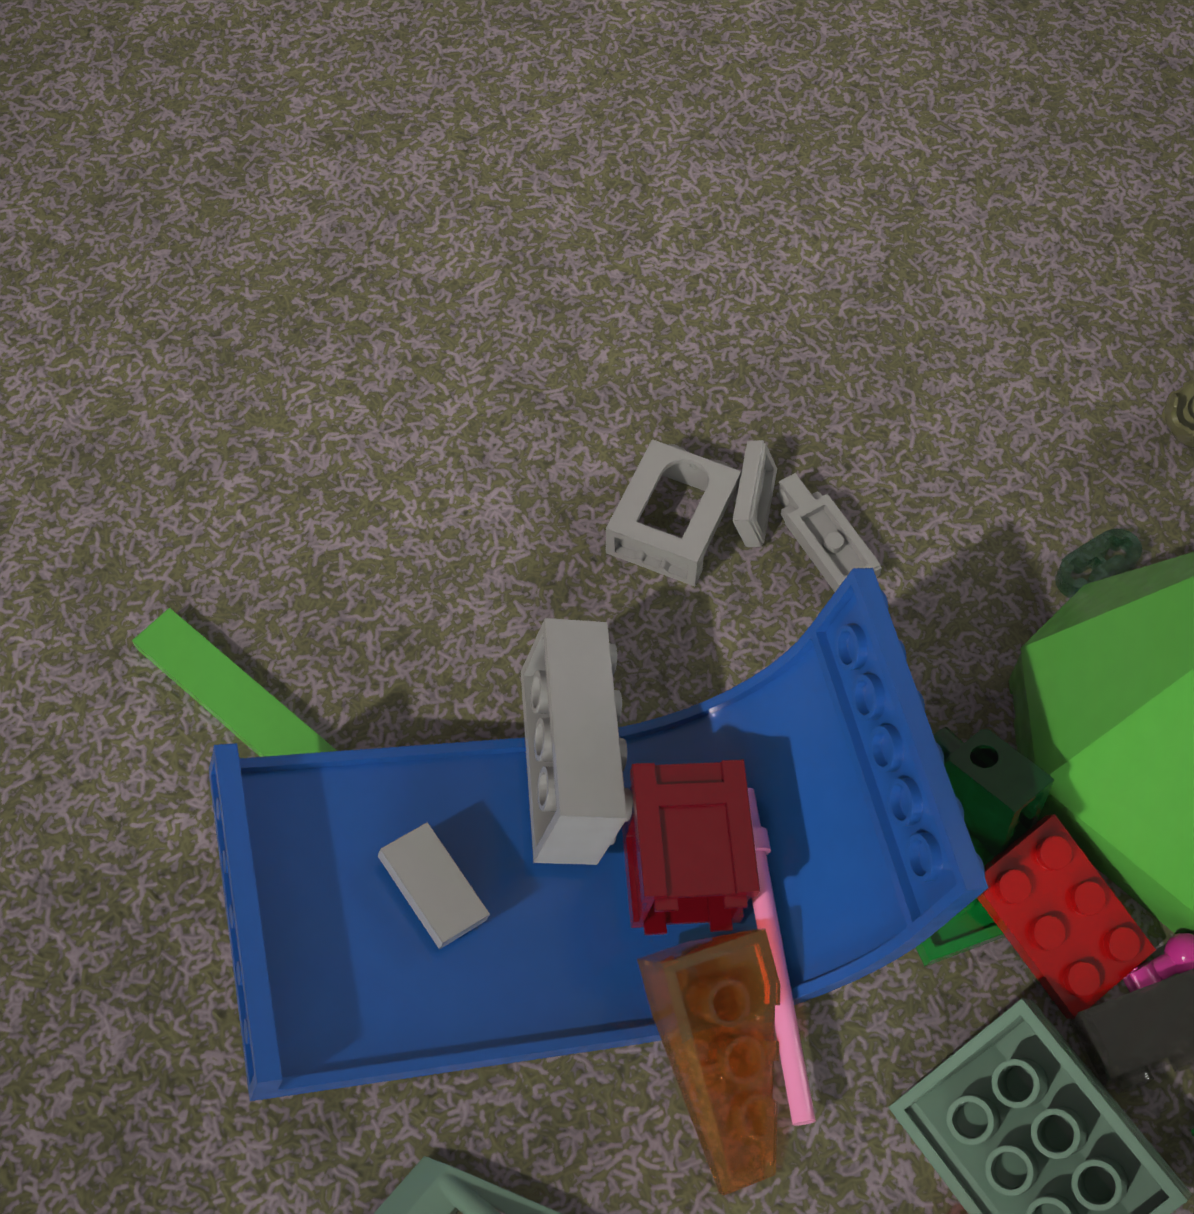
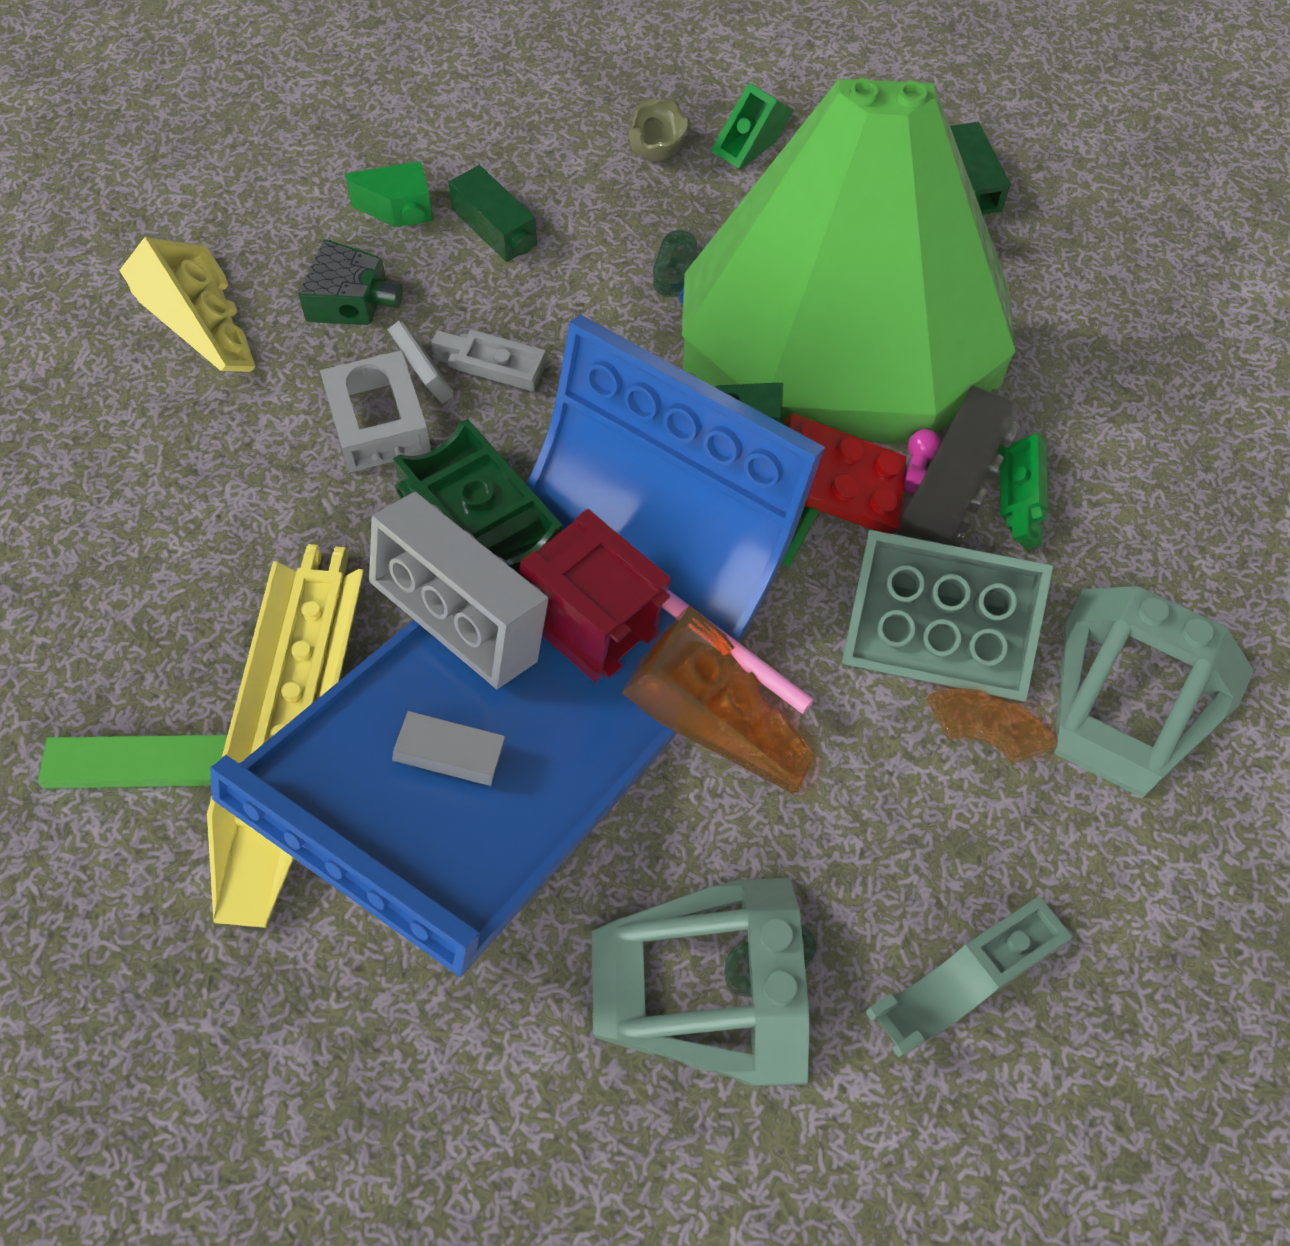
camera: 45 degrees left, 0 degrees up
(382, 704) = (289, 666): none -> light yellow hinge
(608, 286) = (186, 293): none -> light yellow wedge
(677, 671) = (479, 494): none -> dark green piece
(753, 372) = (346, 286): none -> torso
(878, 308) = (392, 194): none -> green slope
(956, 390) = (493, 213): none -> dark green brick

